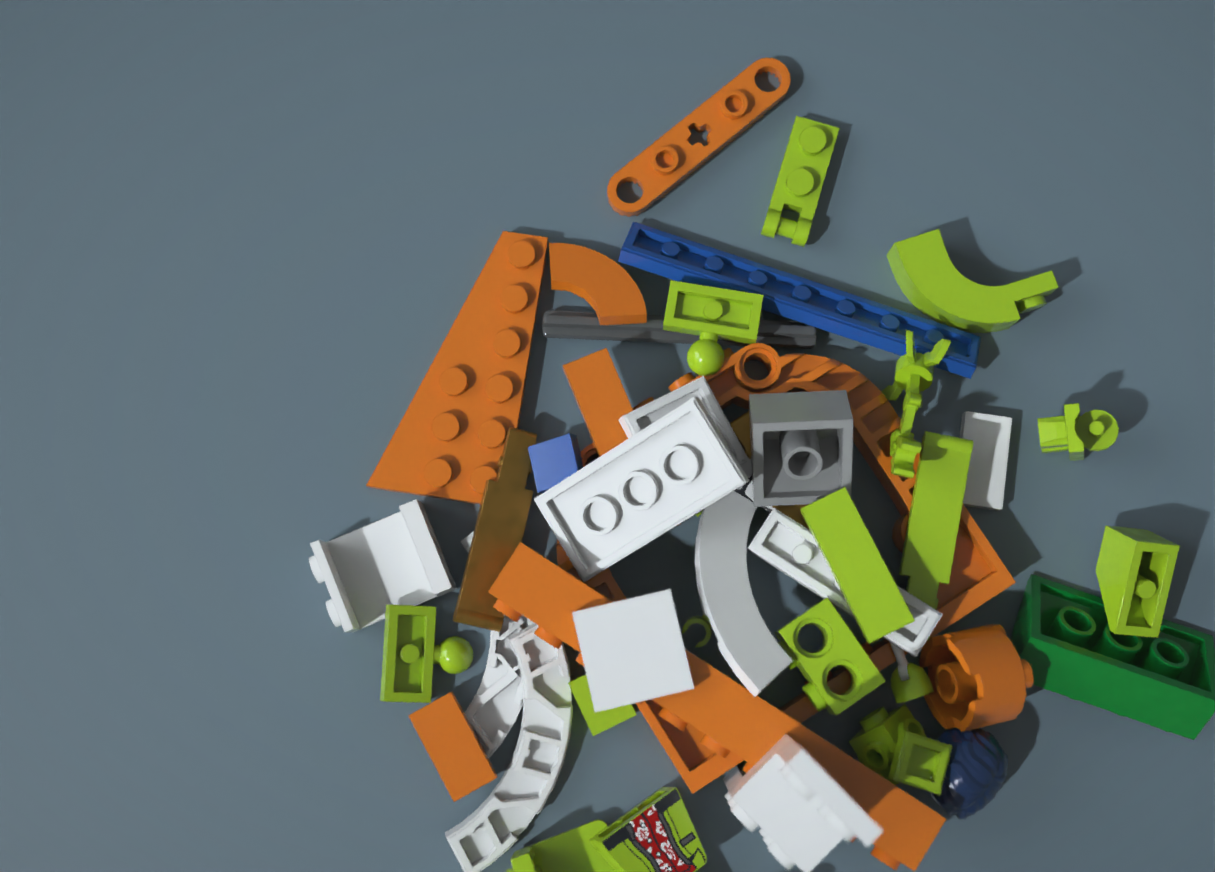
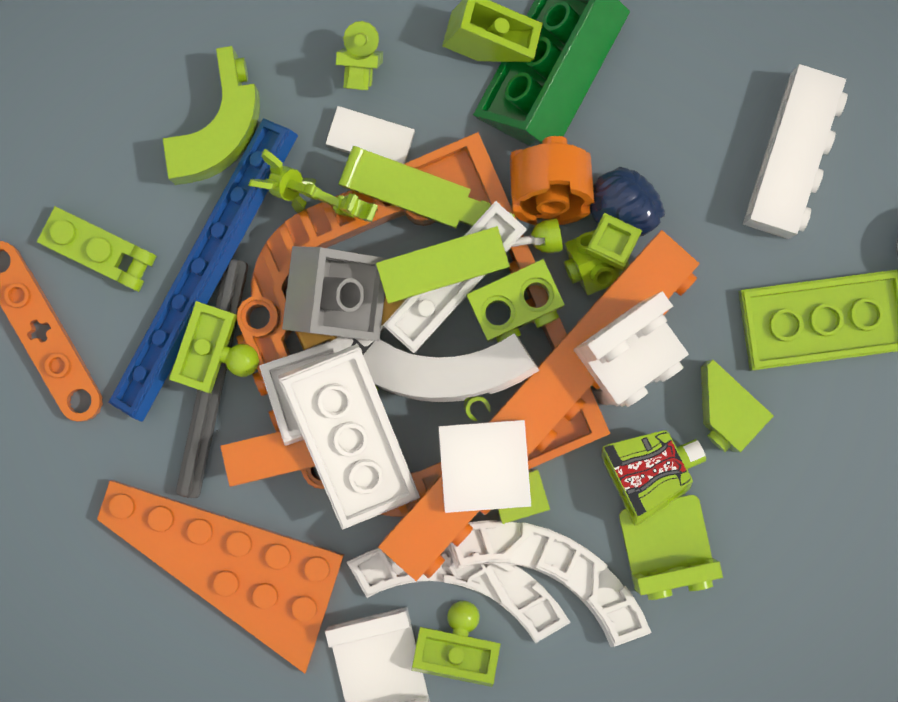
camera: 85 degrees left, 5 degrees up
(453, 746) = (540, 629): orange tile -> none
(496, 532) = (363, 564): pearl gold piece -> none
(555, 461) = (311, 505): tile -> none
(599, 282) = (157, 442): orange tile -> none

